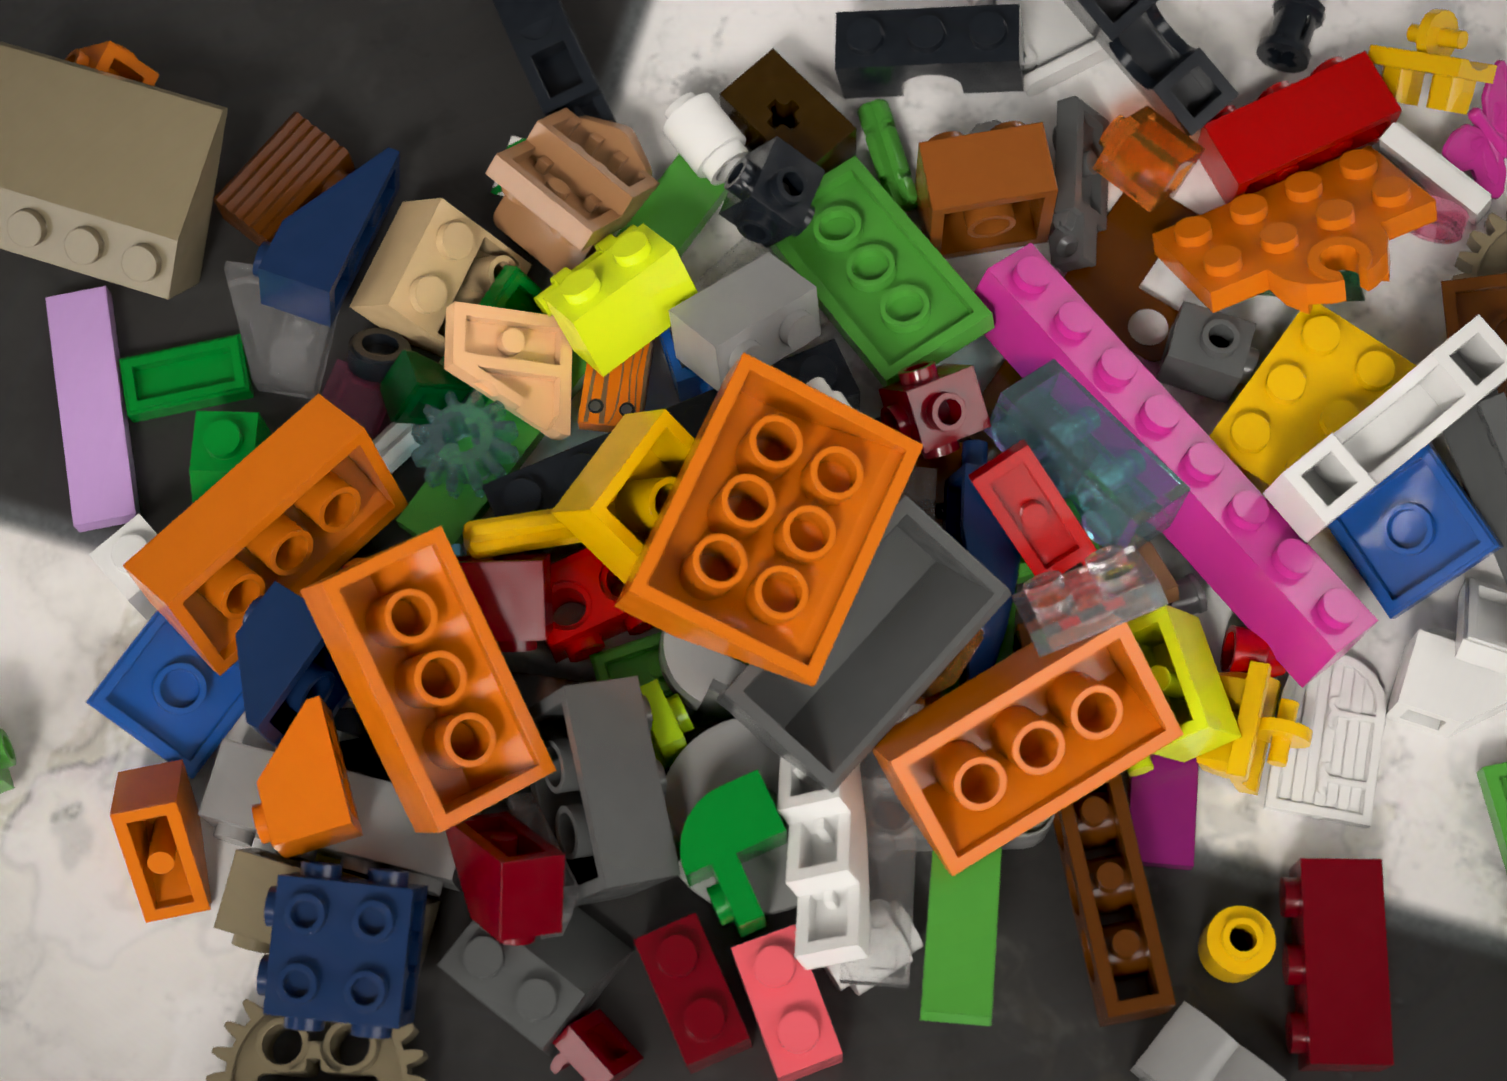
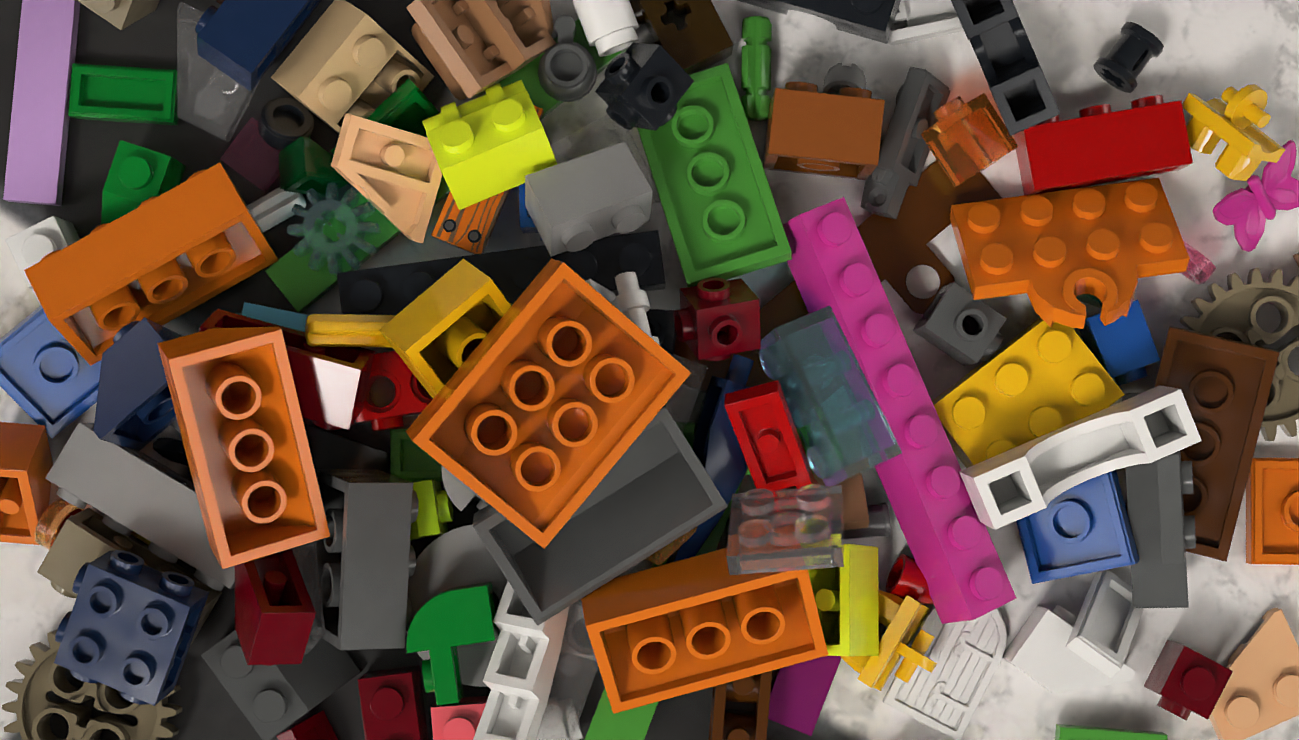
camera: 10 degrees right, 15 degrees up
(216, 870) = (53, 521): none -> clear orange tile
(306, 787) = (133, 489): orange slope -> none
(678, 205) = (567, 68): none -> dark grey piece
(1395, 317) = (1121, 346): none -> blue brick
(1434, 171) = (1203, 222): white tile -> none

